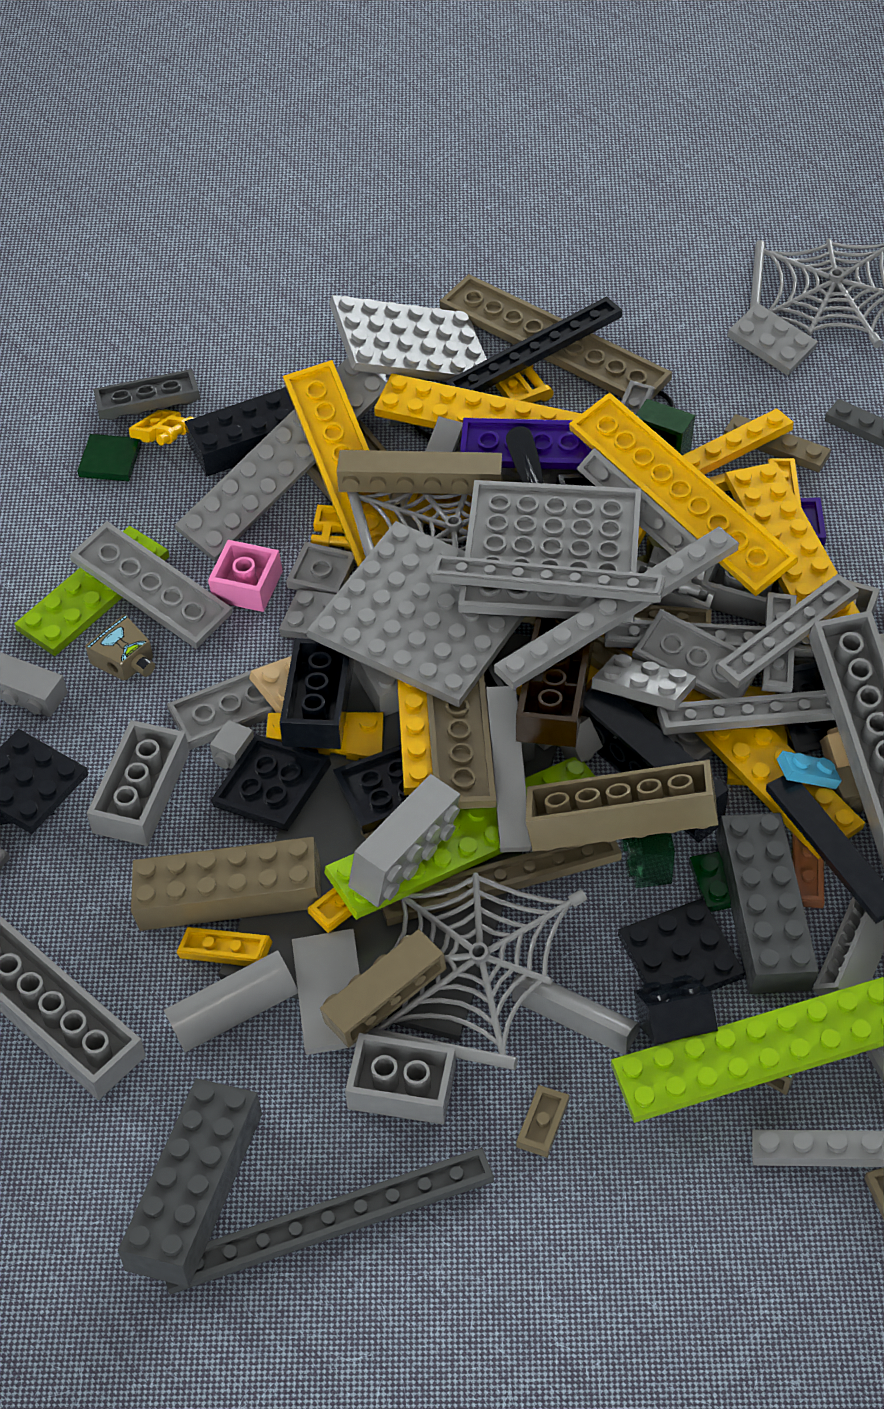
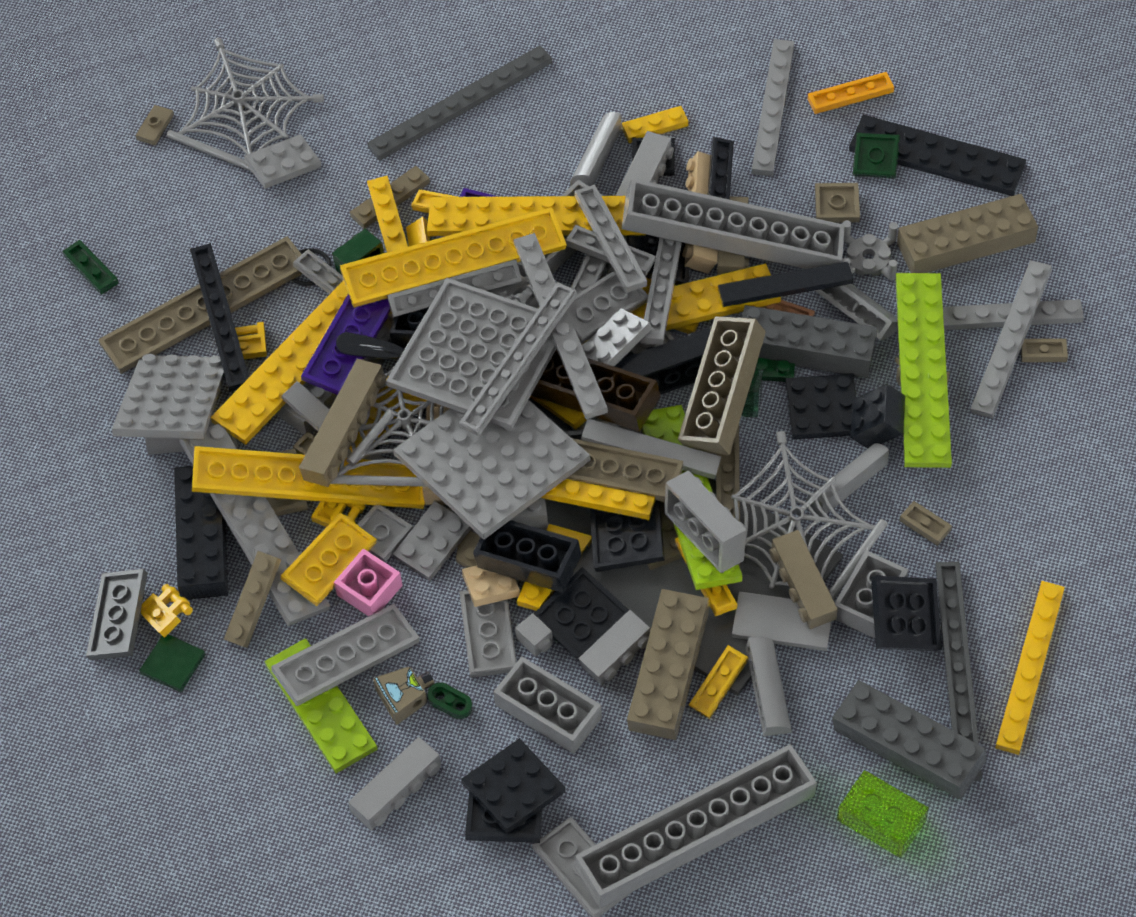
camera: 70 degrees left, 5 degrees up
(82, 1181) = (882, 813): none -> clear neon green brick
(126, 698) = (451, 700): none -> dark green plate
(191, 485) = (252, 599): none -> dark tan plate
(233, 823) = (615, 648): none -> light grey brick
(262, 526) = (327, 558): none -> yellow tile
(365, 1314) = (1029, 668): none -> yellow plate
(374, 1123) = (906, 613): none -> black plate
(413, 504) = (371, 436): none -> light grey bar
(557, 242) = (90, 267): none -> dark green plate
(765, 230) = (154, 125): none -> dark tan plate
(809, 769) = (719, 274): medium azure plate -> none

